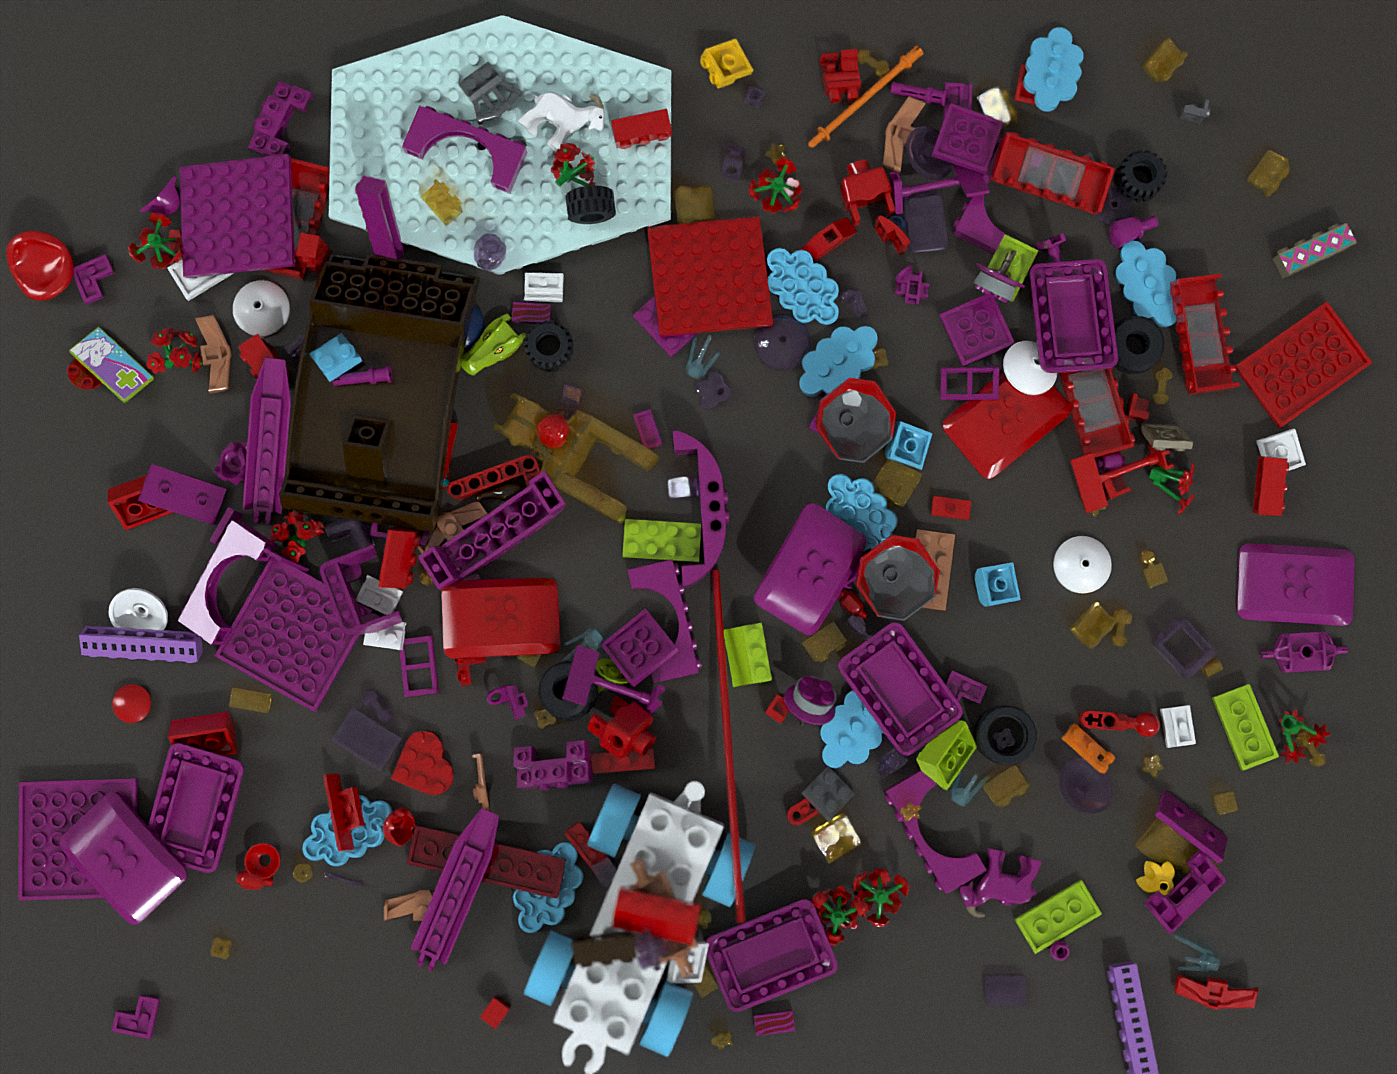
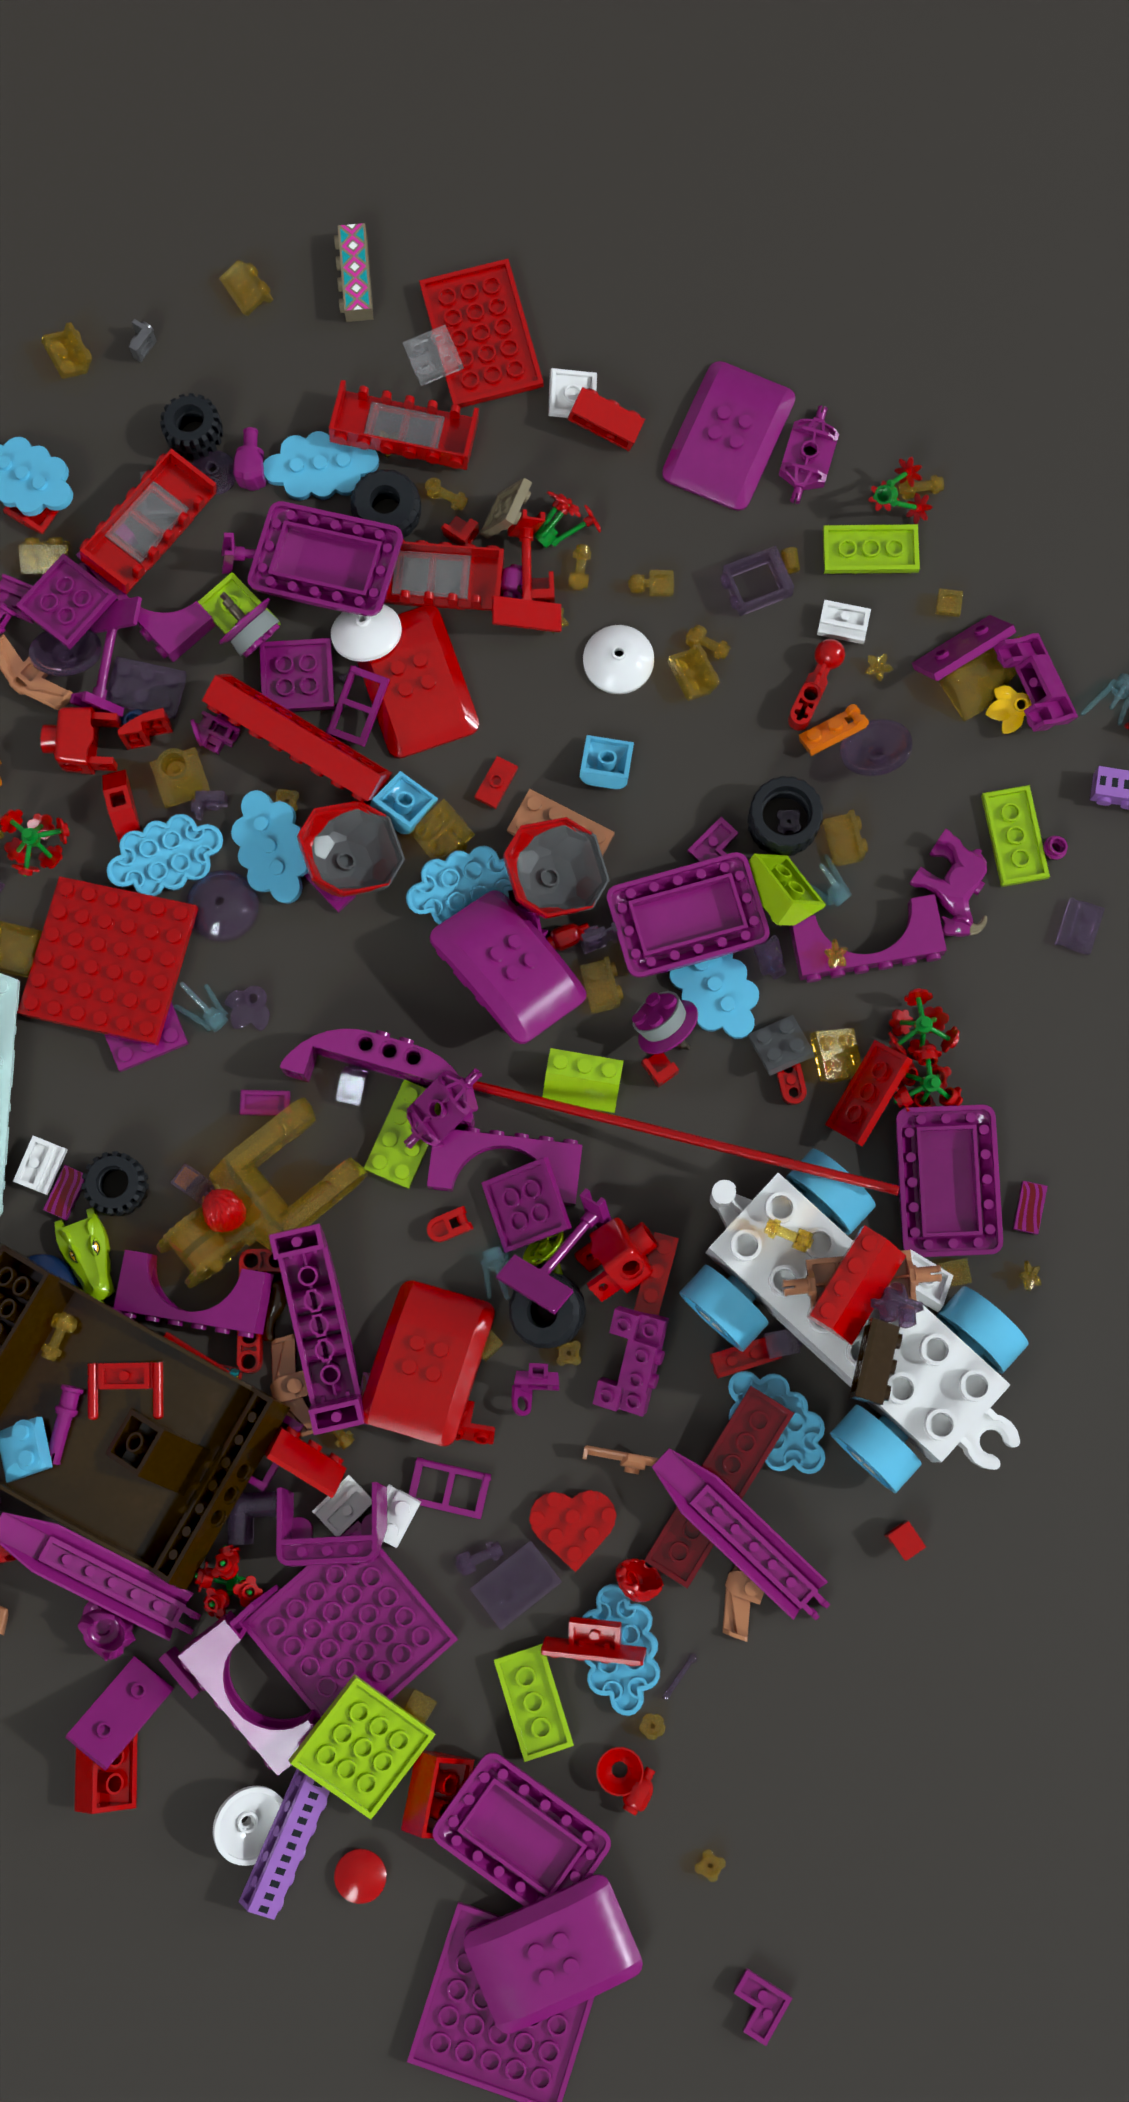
camera: 70 degrees left, 5 degrees down
(215, 672) = (362, 1747): none -> lime plate
(289, 782) = (533, 1703): none -> lime plate
(410, 409) = (125, 1376): none -> red plate
(432, 348) = (63, 1323): none -> clear yellow bar
(477, 396) = (241, 1310): none -> magenta arch
(600, 591) = (440, 1229): none -> red plate
(677, 862) = (801, 1240): none -> clear yellow bar
(694, 568) = (456, 1102): none -> magenta plate
(814, 872) = (869, 1092): none -> red plate
(866, 282) = (179, 775): none -> clear yellow plant
(926, 347) = (296, 736): none -> red brick
(1133, 511) = (579, 579): none -> clear yellow bar
(1269, 335) = (433, 355): none -> clear plate

